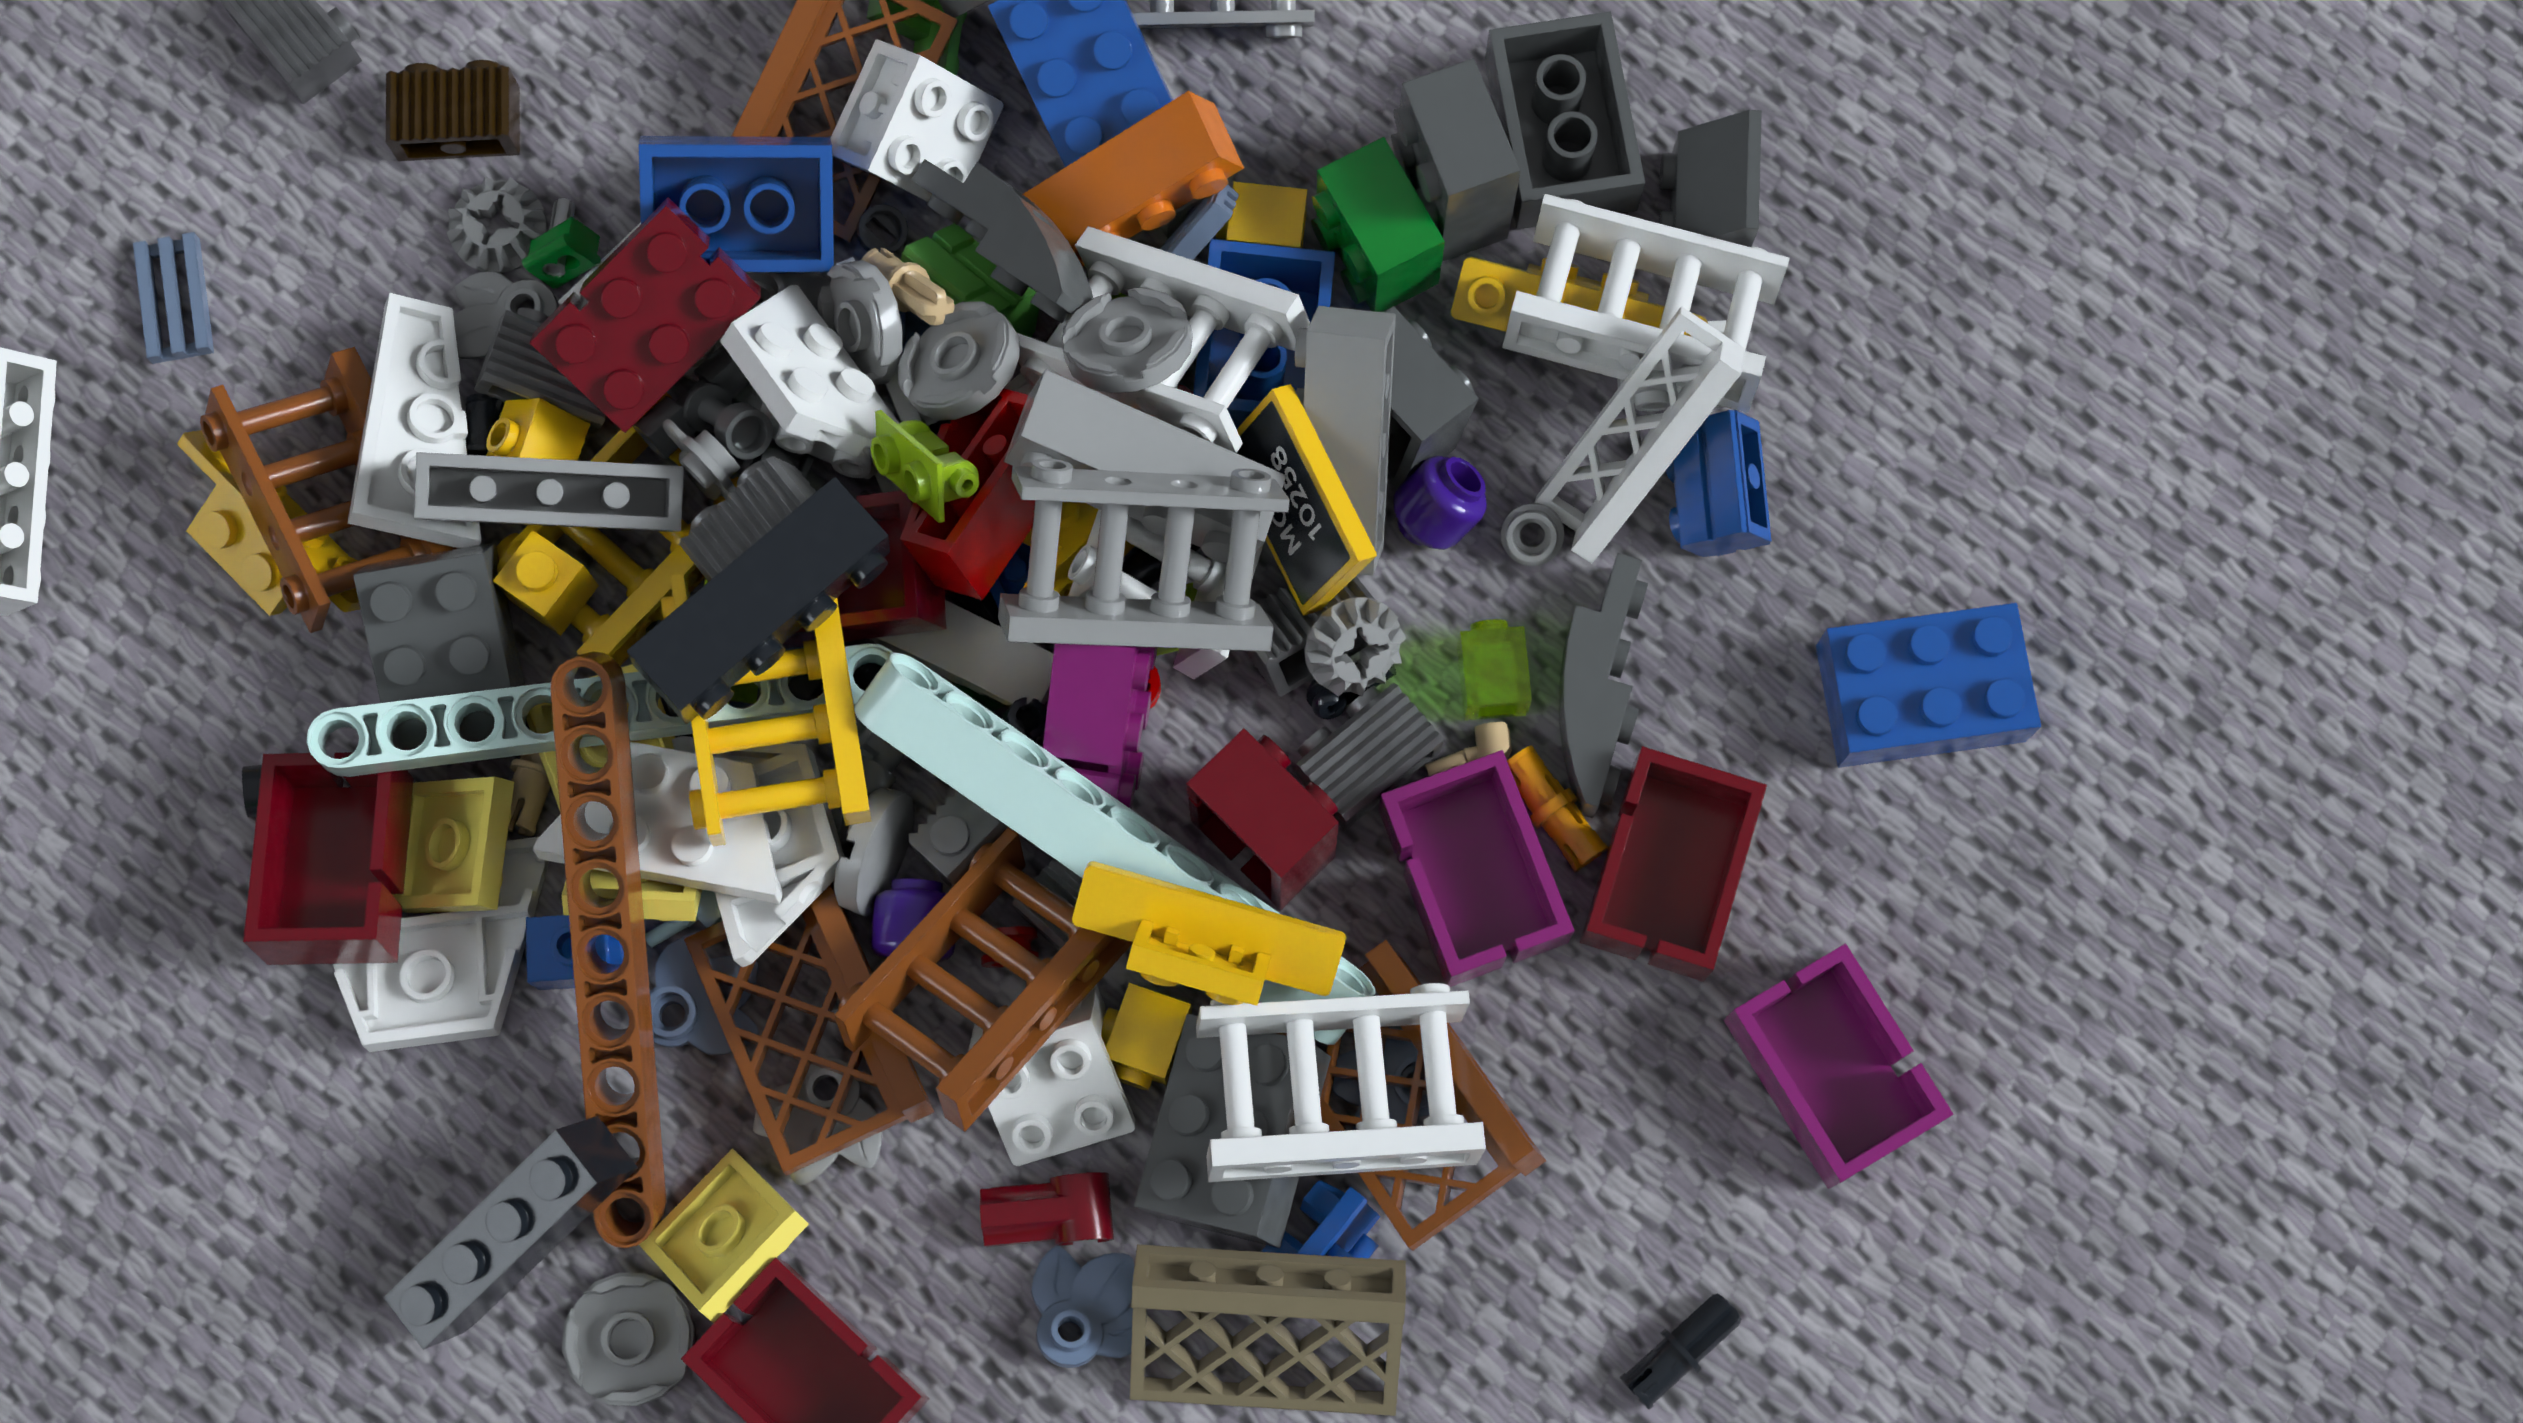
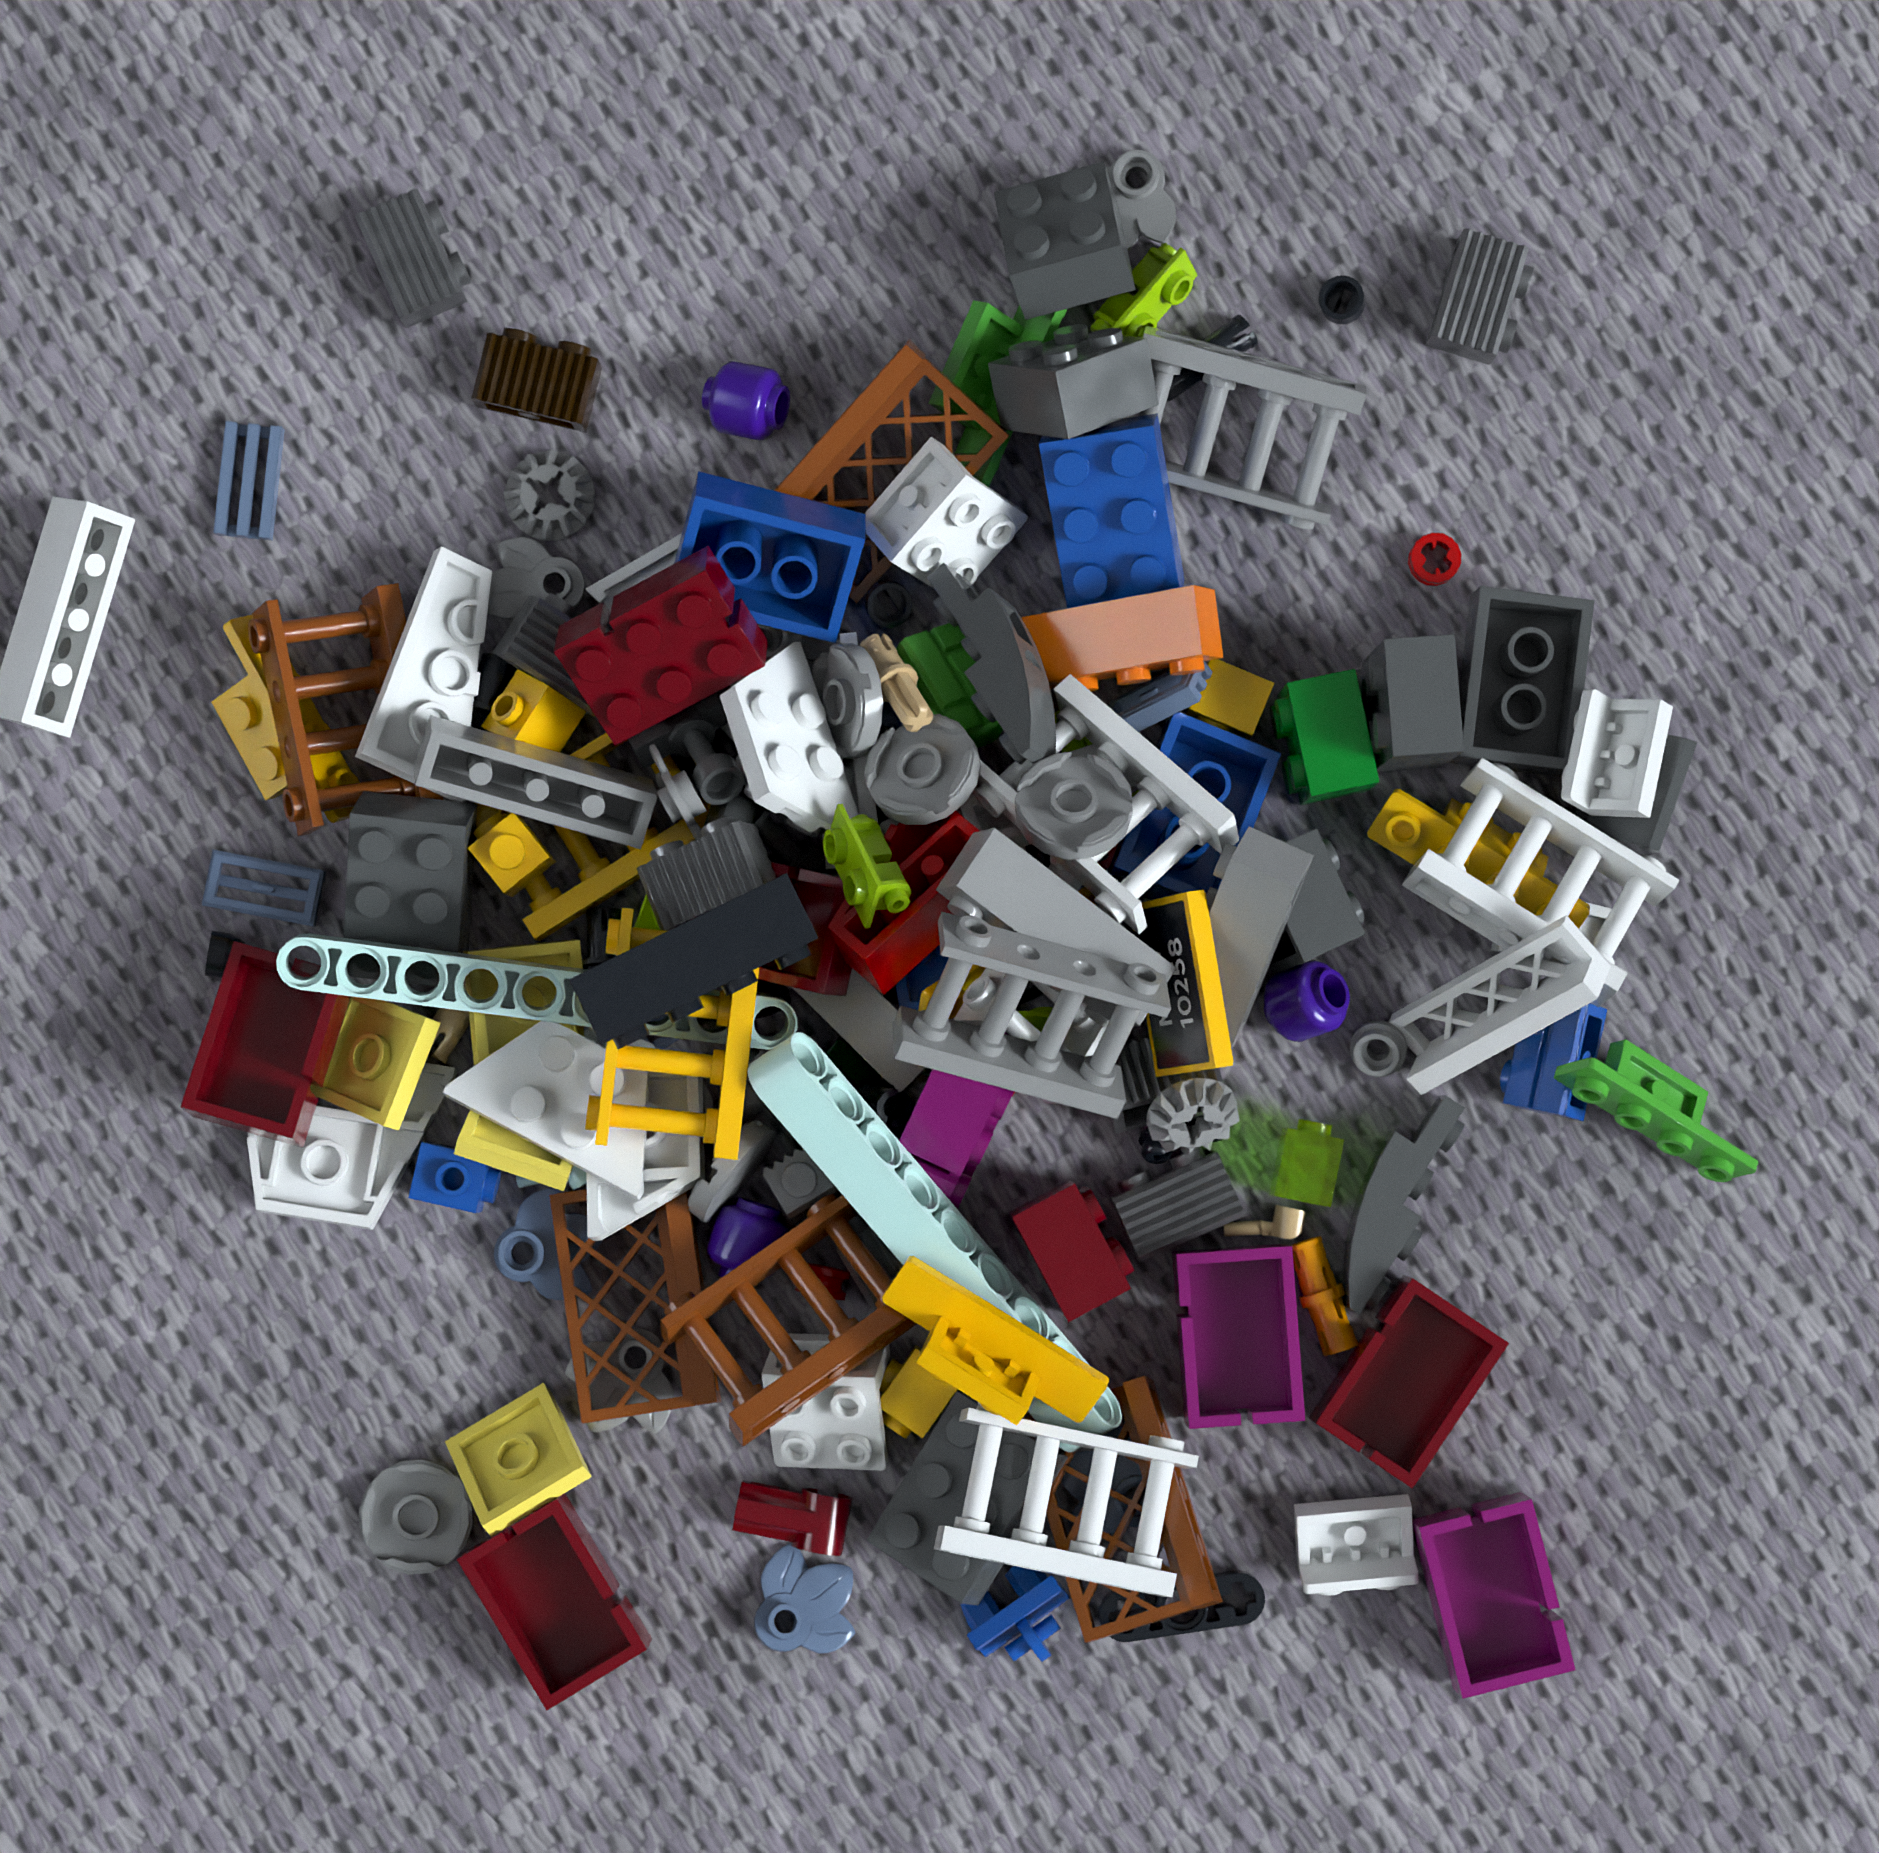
camera: 15 degrees right, 10 degrees up
(234, 715) = (311, 897): none -> sand blue tile
(510, 1231) = (343, 1412): brick -> none
(564, 249) = (604, 540): green piece -> none
(618, 917) = (497, 1178): dark orange beam -> none
(677, 71) = (746, 400): none -> dark purple head
(1268, 1291) = (956, 1649): dark tan fence -> none
(1454, 30) = (1451, 558): none -> red bush
(1555, 1180) = (1169, 1627): none -> black beam
(1671, 1060) = (1355, 1544): none -> white bracket
(1681, 1350) = (1287, 1785): black axle -> none
(1682, 150) = (1615, 755): none -> white bracket
(1844, 504) = (1658, 1104): none -> bright green bracket
(1927, 685) = (1677, 1287): blue brick -> none

